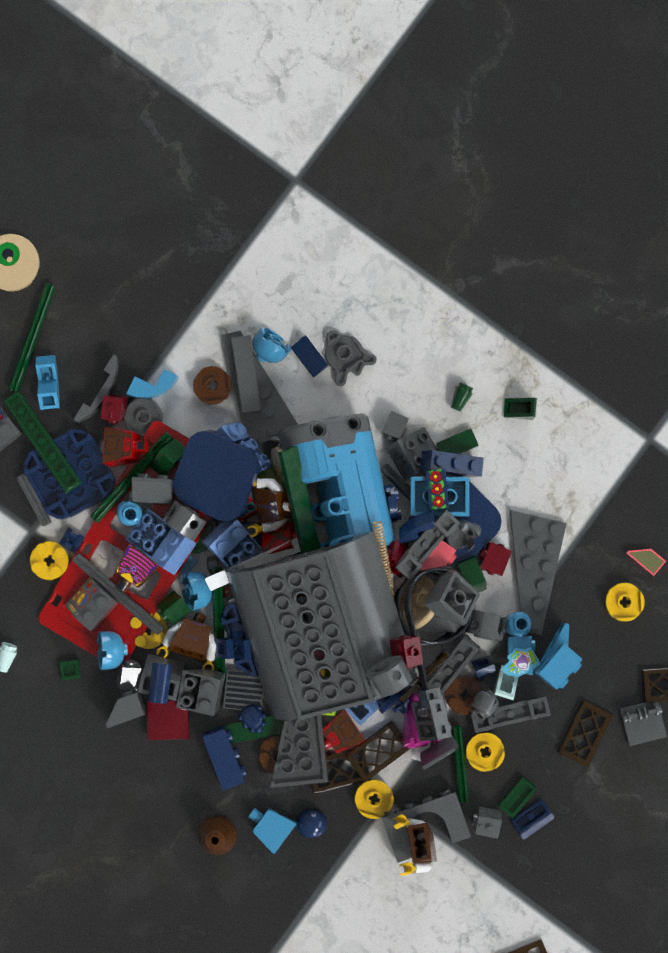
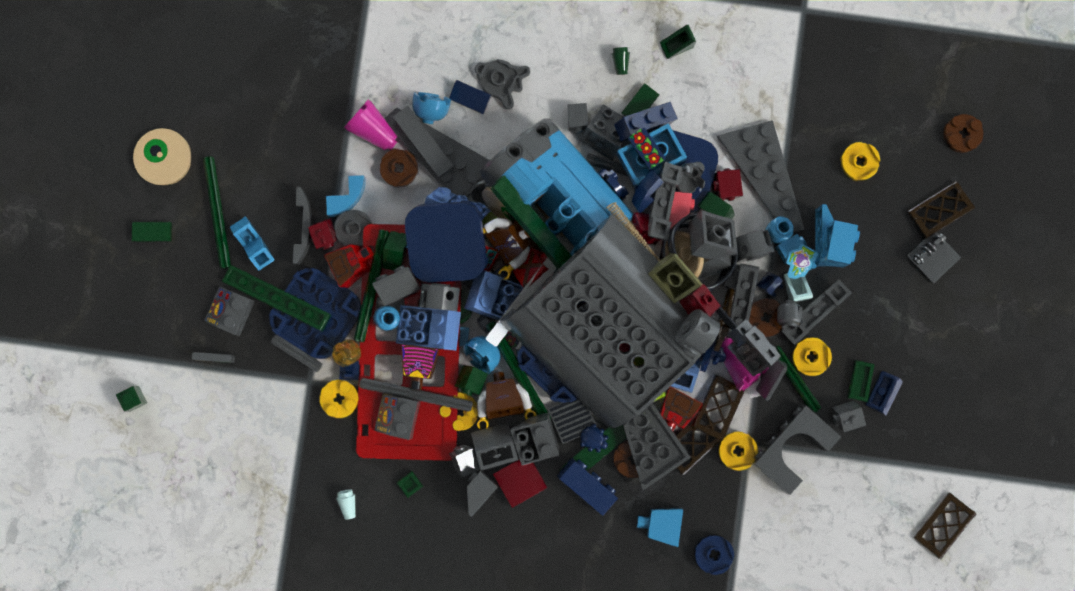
camera: 25 degrees left, 0 degrees up
(77, 524) = (346, 353): none -> clear yellow head
(110, 650) = (436, 446): dark azure cylinder -> none
(160, 683) = (496, 452): dark blue brick -> none
(208, 336) = (372, 127): none -> dark pink cone
(222, 829) = (613, 552): reddish brown cone -> none
(233, 648) = (543, 385): dark blue slope -> none
(309, 887) = (723, 560): none -> dark blue plate
(311, 823) = (695, 502): dark blue hair -> none
(395, 617) = (674, 277): none -> olive slope
(421, 845) = (803, 468): torso -> none
(601, 730) = (902, 290): dark brown window -> none
(647, 559) = (859, 114): olive tile -> none

